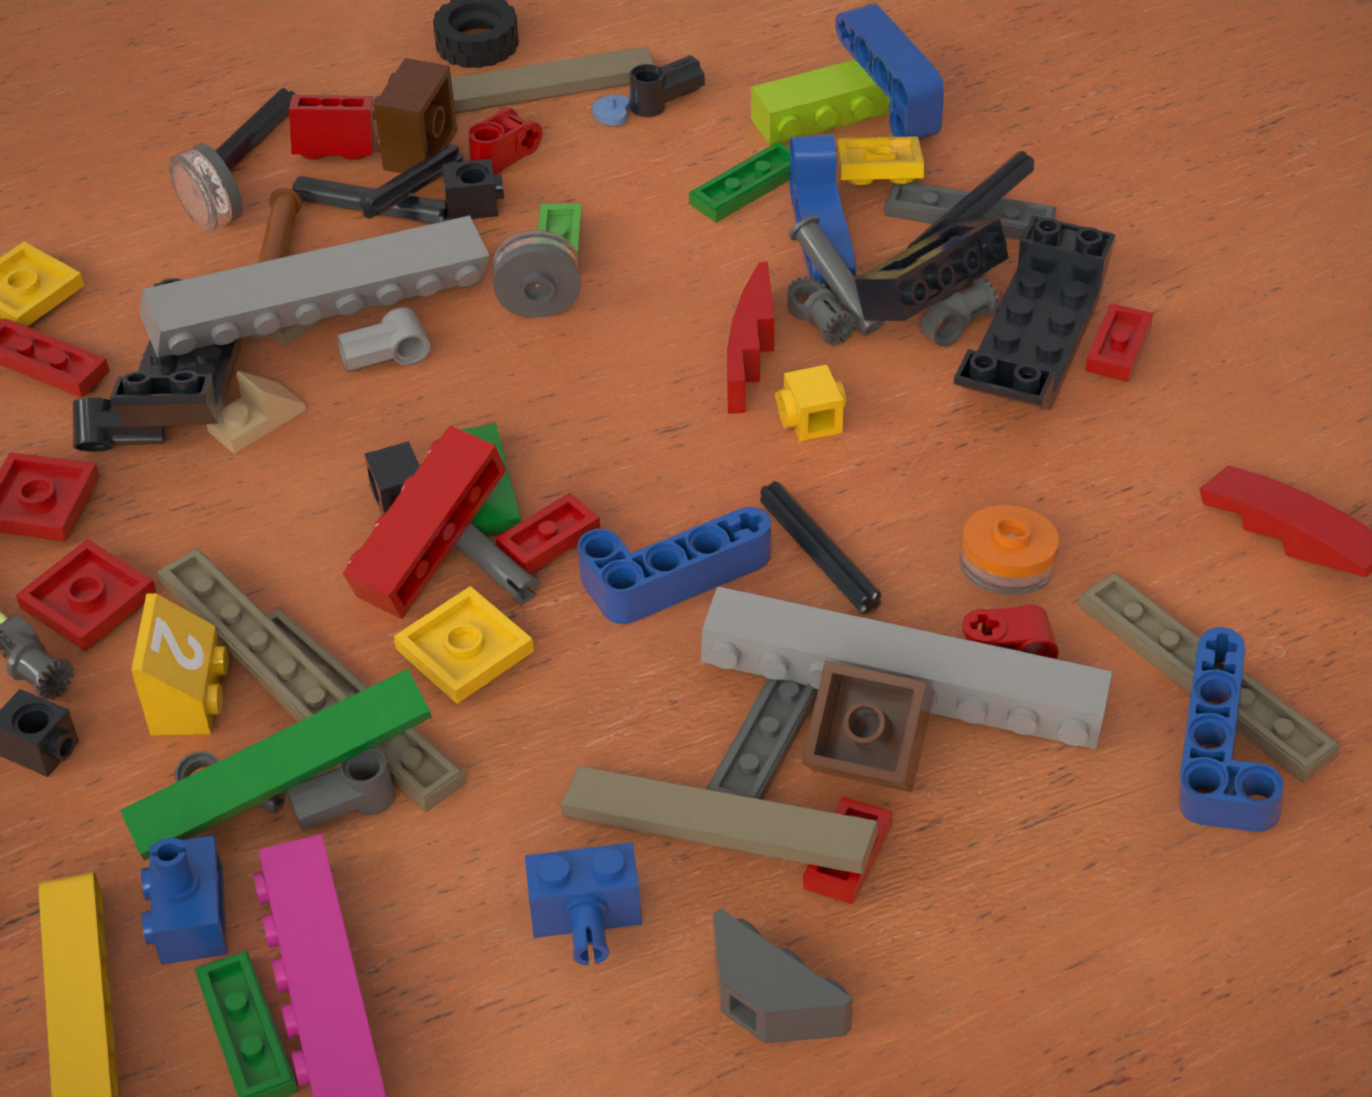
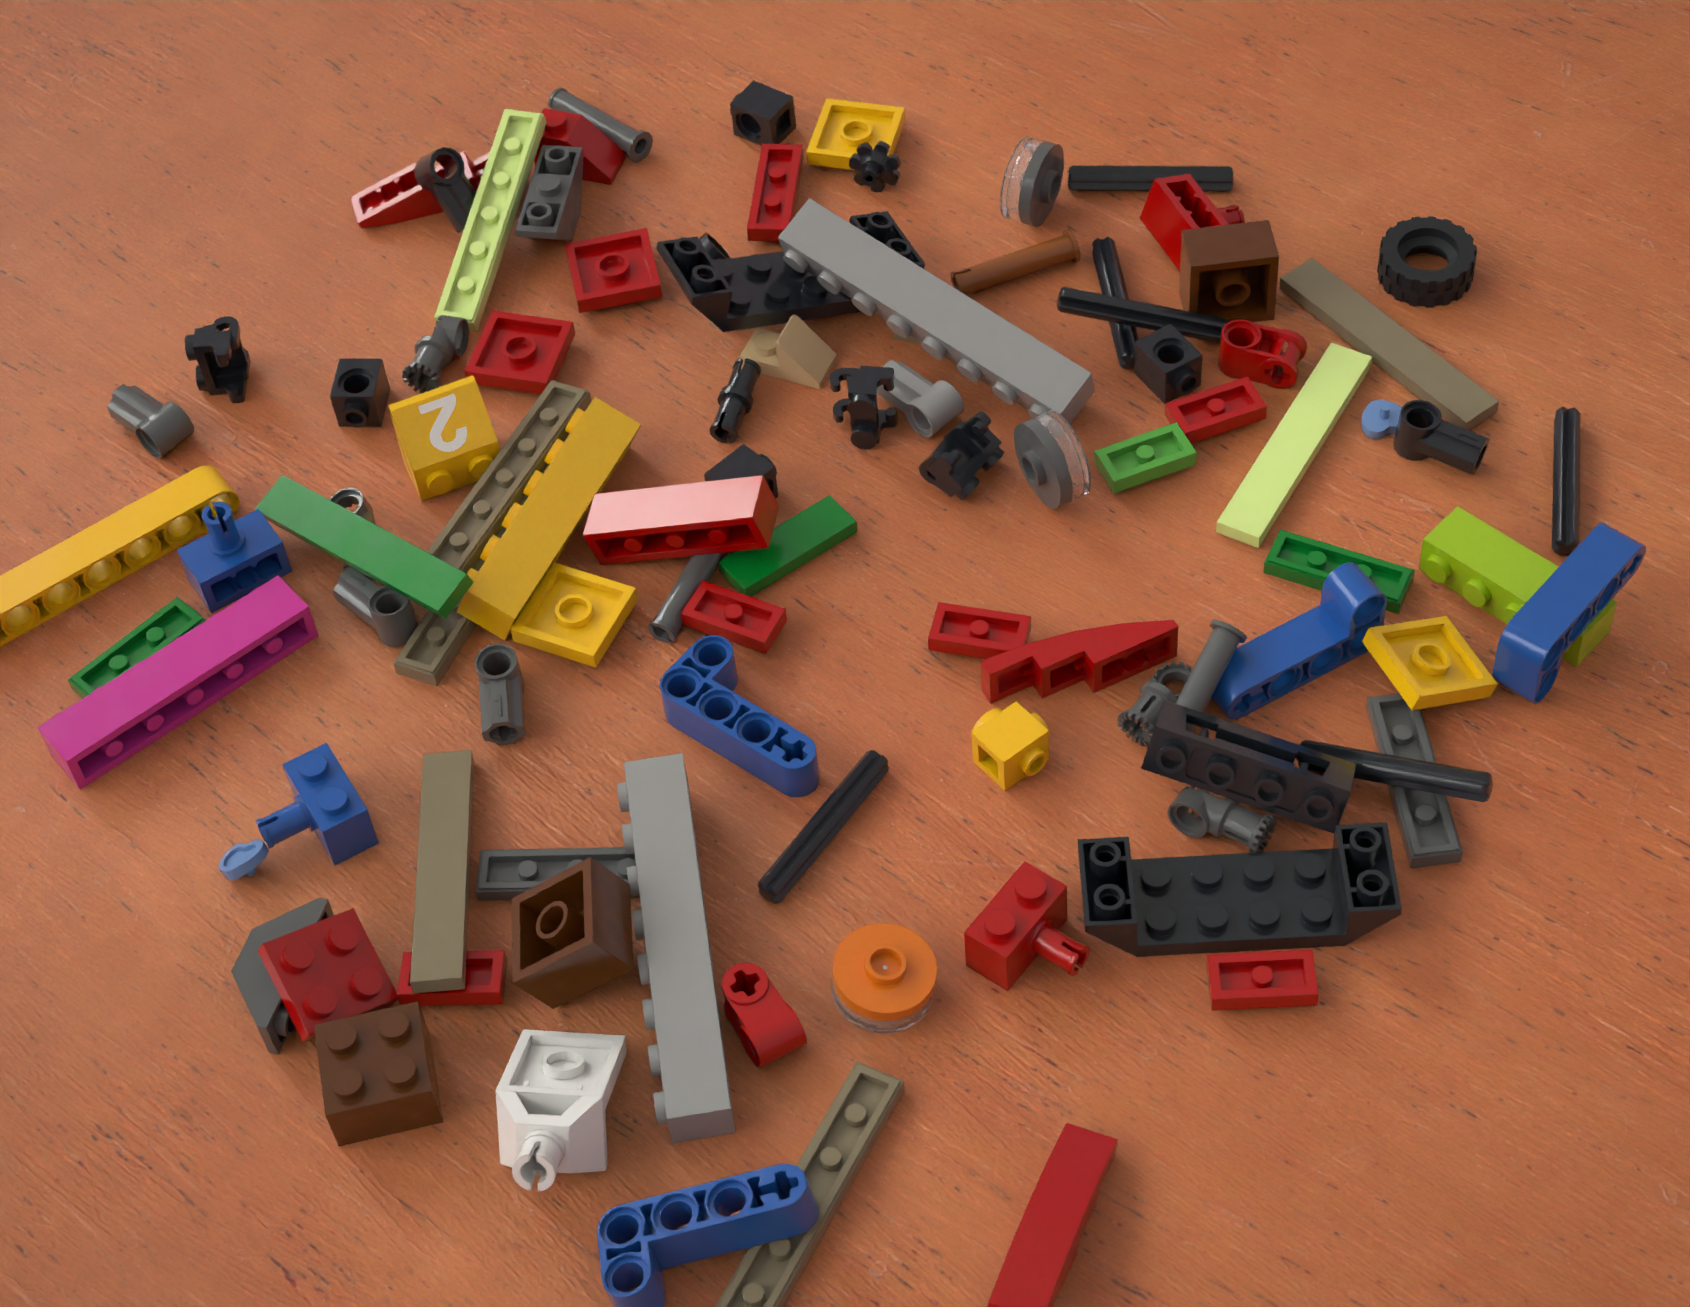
camera: 70 degrees right, 5 degrees up
(81, 281) = (875, 166): none -> black plant
(284, 459) = (735, 400): none -> black pin
(331, 612) = (549, 516): none -> yellow brick
(374, 368) = (862, 402): none -> black piece
(477, 334) = (961, 455): none -> black piece
(515, 720) = (500, 695): none -> dark grey piece
(539, 181) = (1217, 410): none -> red plate
(601, 991) = (243, 859): none -> medium blue piece
(605, 160) = (1293, 445): none -> yellowish green tile
(677, 386) = (976, 631): none -> red plate
(743, 45) = (1566, 481): none -> black axle
(808, 934) = (327, 972): none -> red plate
(937, 931) = (377, 1074): none -> reddish brown brick
(1007, 453) = (1021, 925): none -> red brick
(1044, 790) = (556, 1104): none -> white plate

